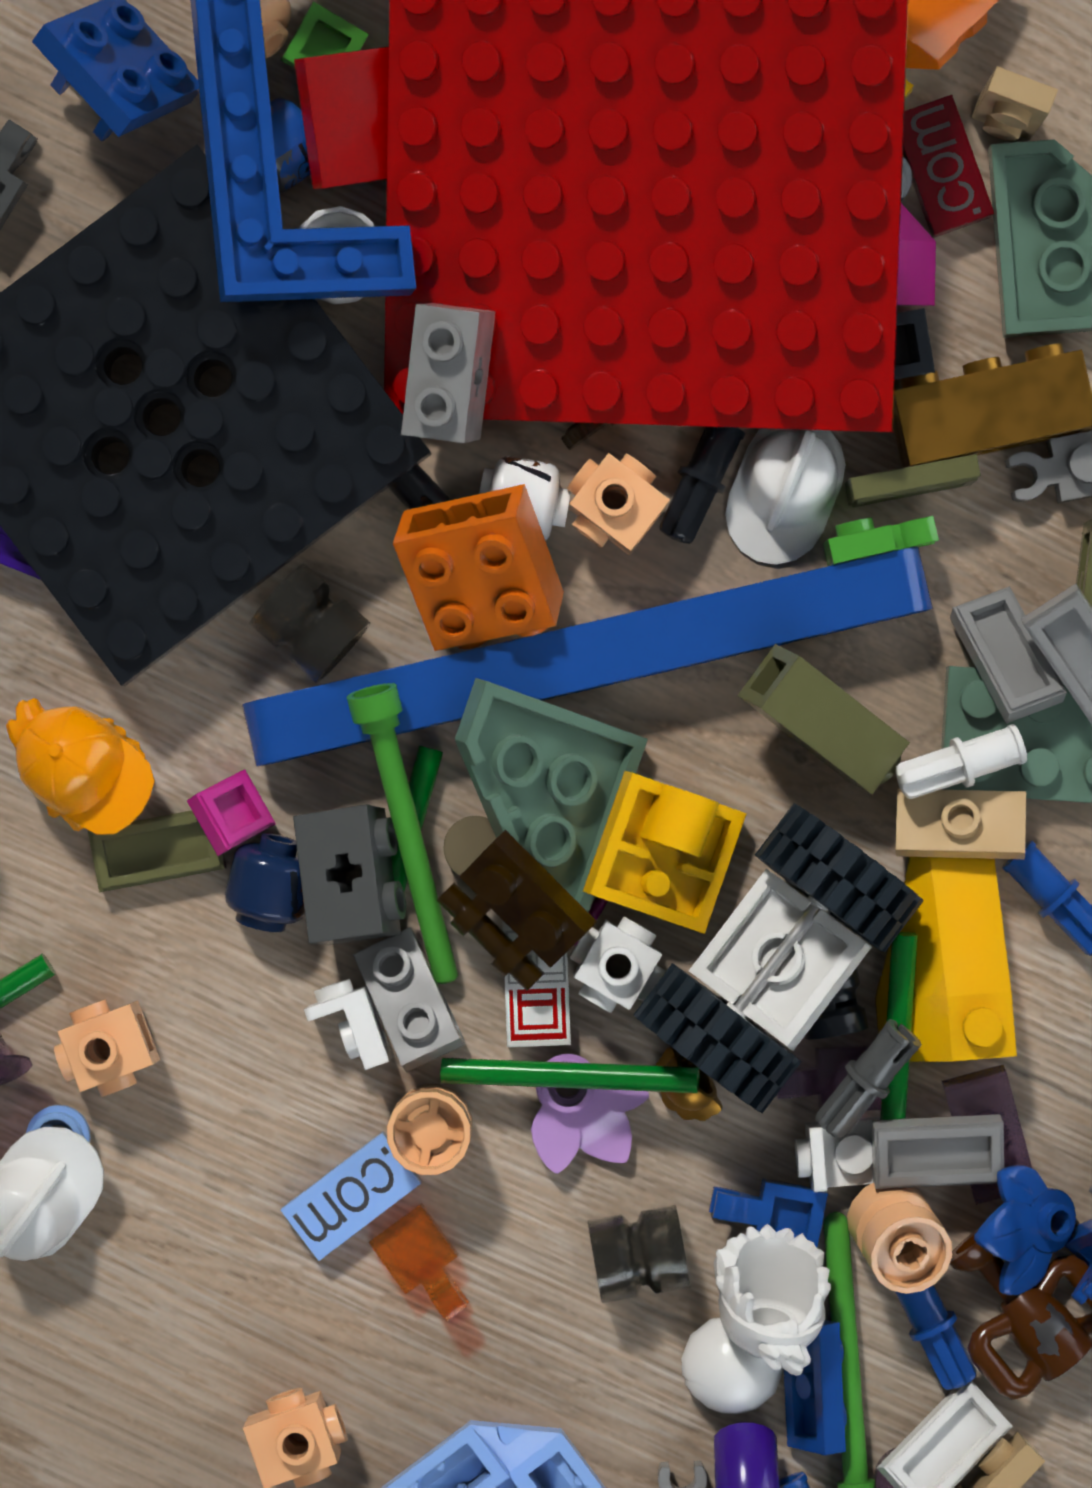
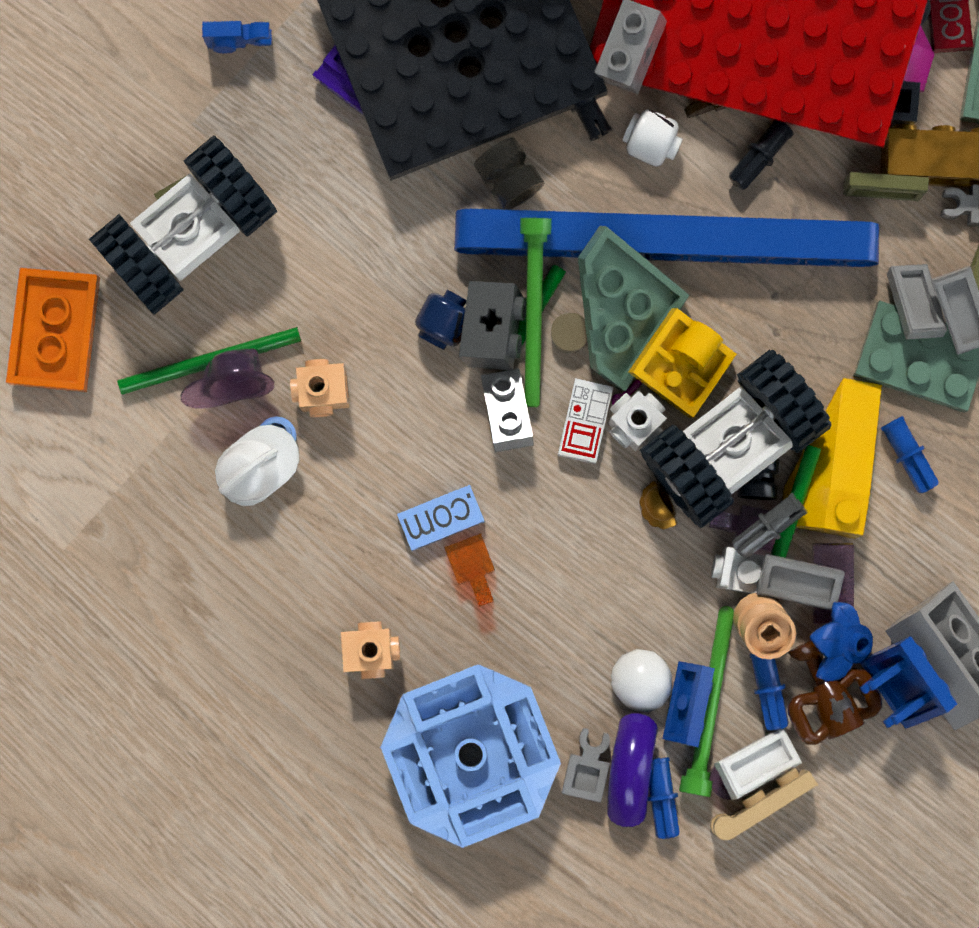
camera: 15 degrees right, 5 degrees down
(80, 766) = (350, 221): light orange hair -> none
(153, 852) = (381, 284): olive tile -> none
(231, 812) = (432, 272): dark pink tile -> none
(363, 1029) = (474, 421): white bracket -> none
(429, 1129) = (499, 487): light nougat wheel -> none
(479, 568) = (618, 165): orange brick -> none
(526, 900) = (595, 366): dark brown plate -> none
(570, 1075) = (592, 477): green piece -> none
(586, 1120) = (594, 511): lavender plate -> none
(621, 526) = (708, 151): light nougat brick -> none
(638, 1254) = (604, 596): clear smoke wheel -> none
(772, 1295) = (679, 638): white hair -> none
(778, 1205) = (694, 597): blue plate -> none
(784, 493) = (807, 175): white piece -> none
(824, 719) = (798, 308): olive brick -> none
(861, 540) = (847, 210): bright green plate -> none
(961, 762) = (874, 354): white axle -> none
(962, 824) = (863, 393): tan plate -> none

